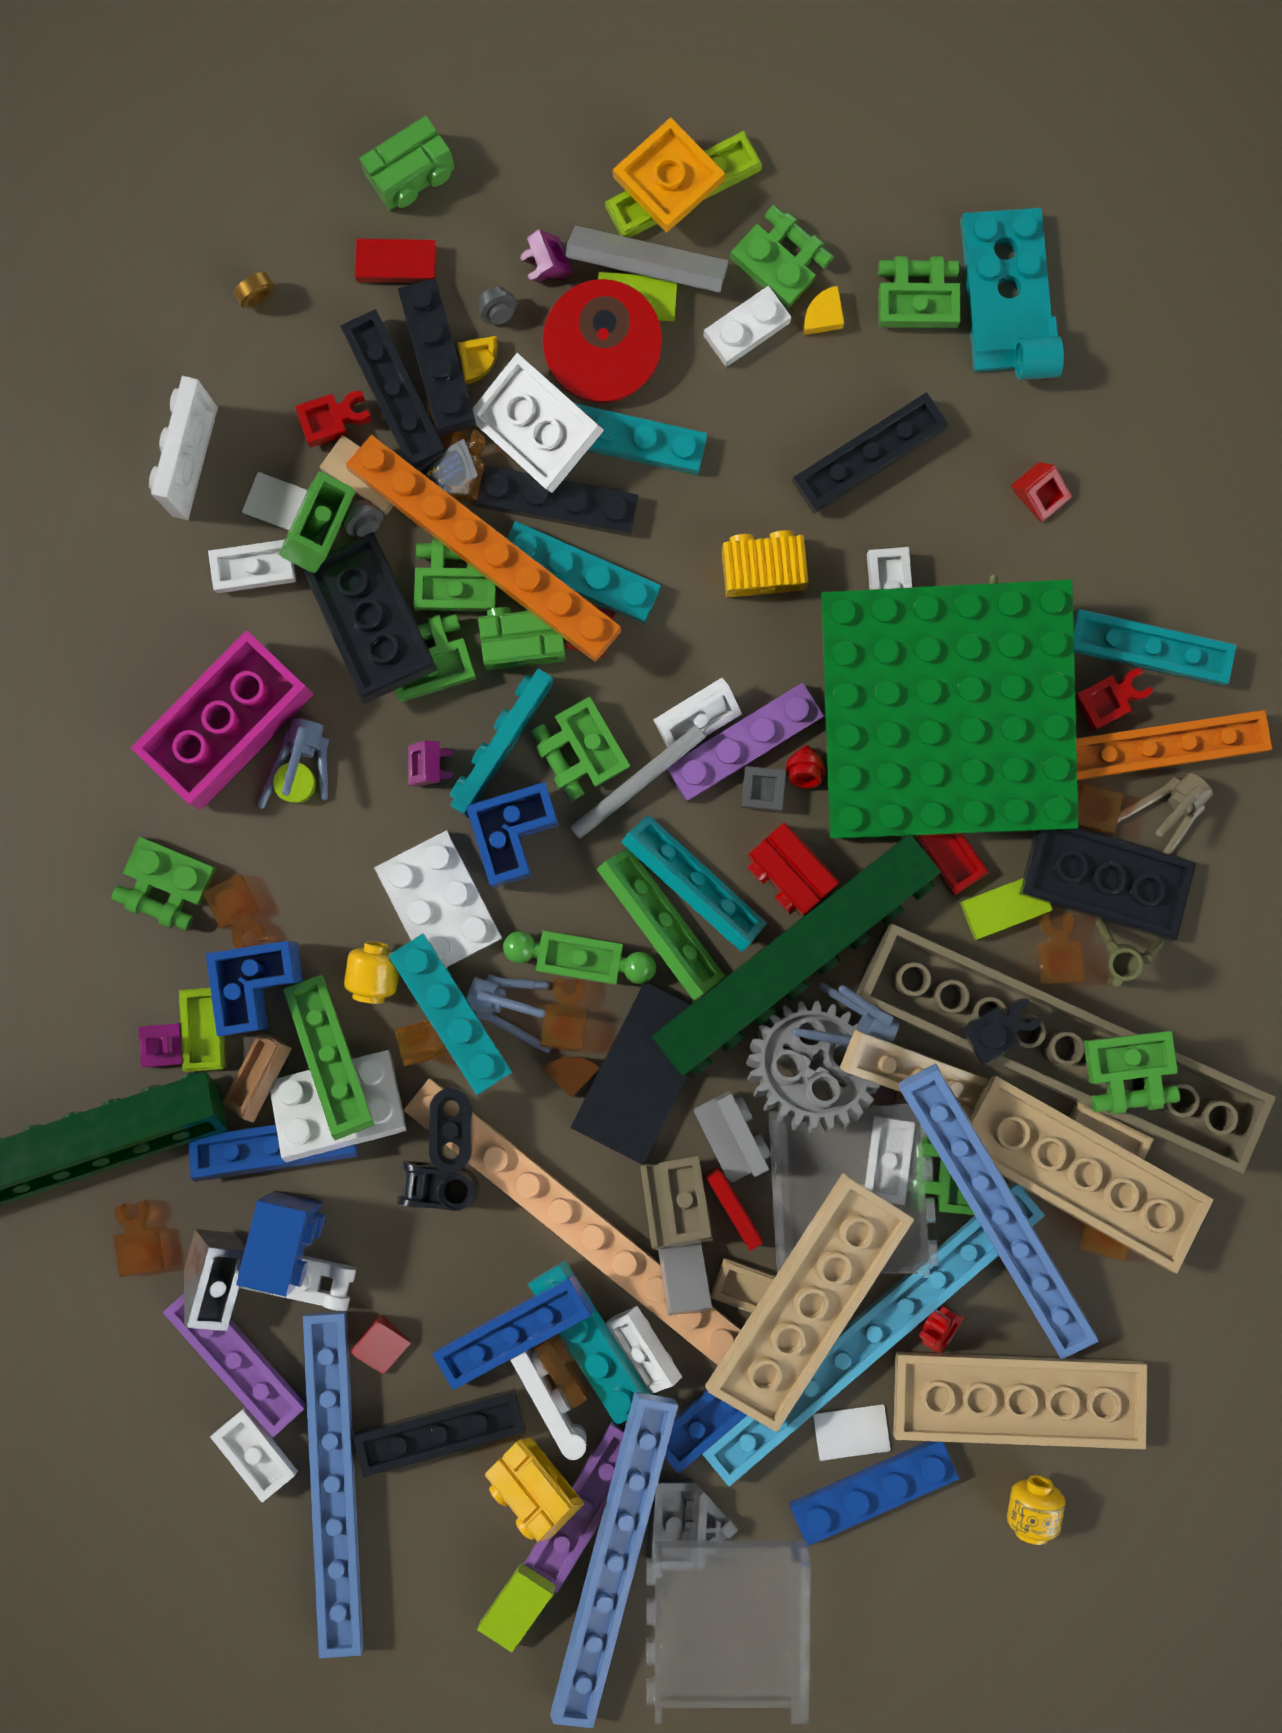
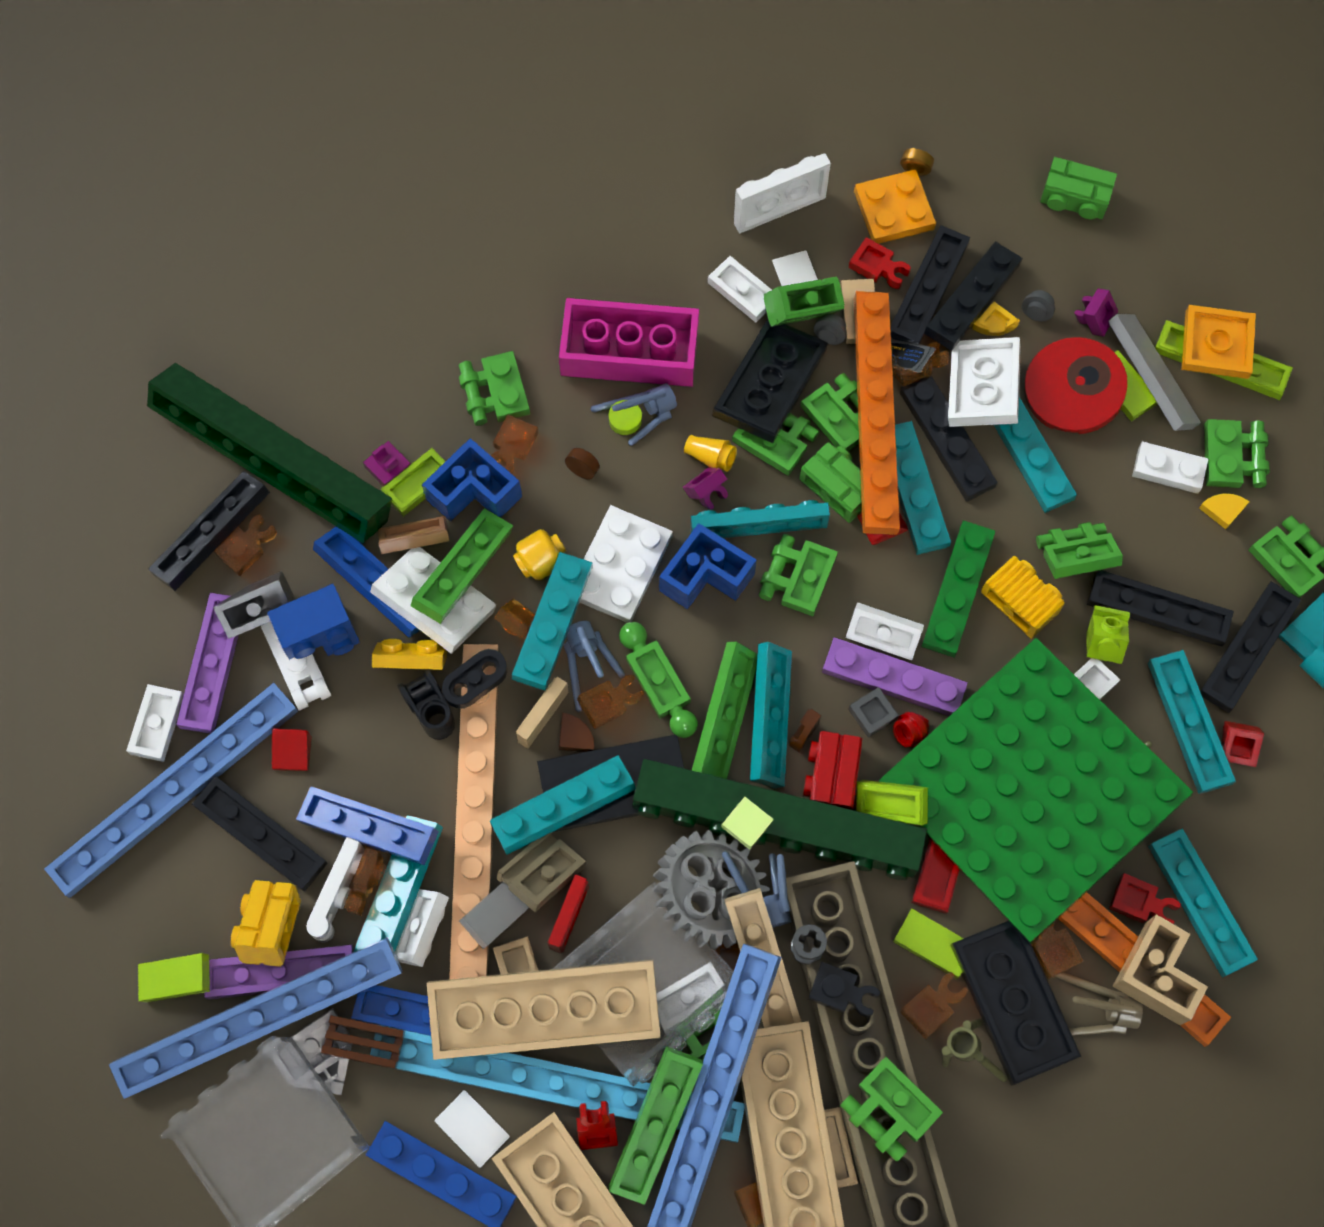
camera: 55 degrees right, 15 degrees down
(95, 1267) = (209, 530): none -> black plate
(282, 350) = (894, 206): none -> light orange plate
(310, 861) = (582, 463): none -> reddish brown tile
(375, 1171) = (419, 655): none -> yellow plate
(395, 260) = (1012, 228): red tile -> none
(397, 731) = (711, 452): none -> yellow cone
(528, 1089) = (542, 712): none -> tan tile
(631, 1138) = (562, 804): none -> teal plate
(637, 782) = (808, 626): light grey bar -> none
(683, 1505) = (332, 1034): none -> reddish brown tile
(708, 614) = (958, 589): none -> green plate
(730, 1138) = (616, 873): light grey bracket -> none
(731, 864) = (808, 725): none -> reddish brown tile
(770, 482) = (1079, 550): none -> bright green plate
(785, 991) = (747, 823): none -> yellowish green tile
(861, 522) = (1108, 634): none -> lime brick
(861, 843) = (893, 801): none -> lime tile
(953, 1030) = (819, 941): none -> dark grey bush
(967, 406) = (1249, 647): none -> black plate
(981, 1278) = (655, 1125): none -> bright green plate
(992, 517) = (1191, 722): none -> teal plate
(1184, 747) = (1151, 973): none -> tan brick

